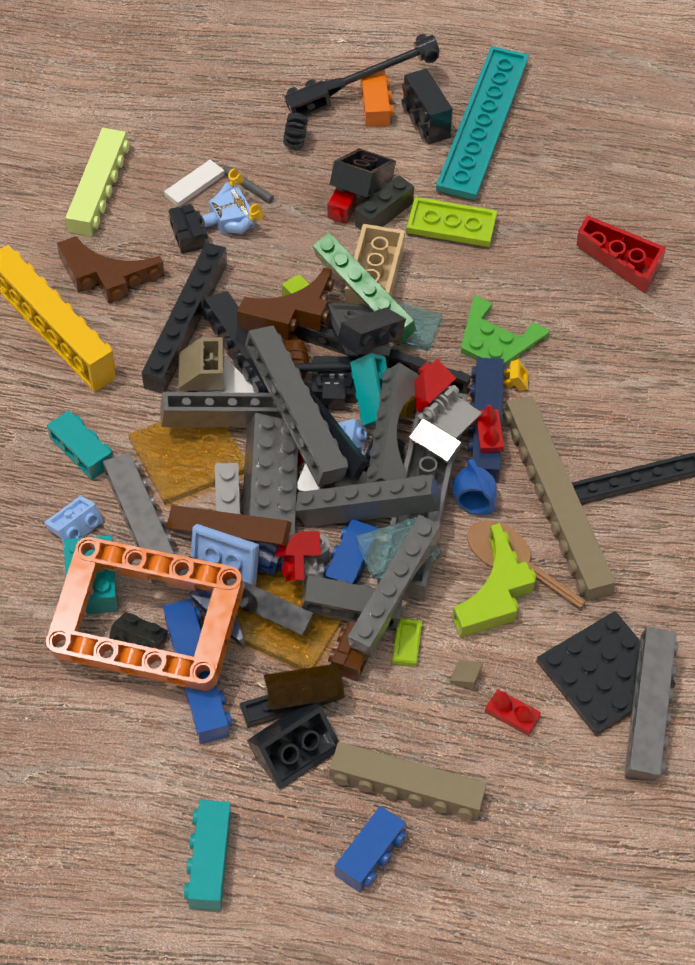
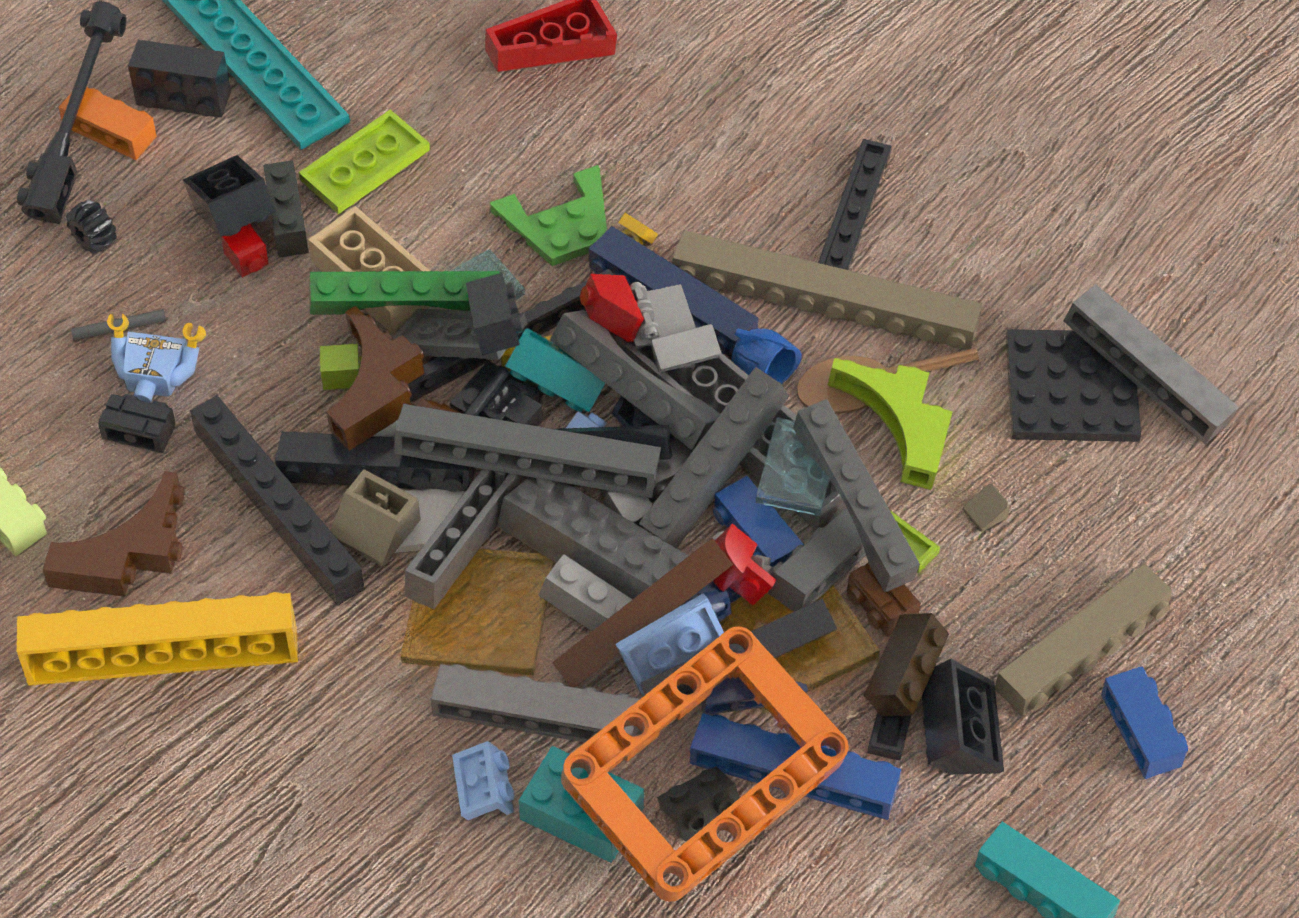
camera: 55 degrees left, 0 degrees up
(79, 444) = (376, 714): teal brick -> none
(194, 183) = (66, 378): white tile -> none
(489, 431) = (706, 296): red tile -> none
(512, 712) = (1062, 495): red tile -> none

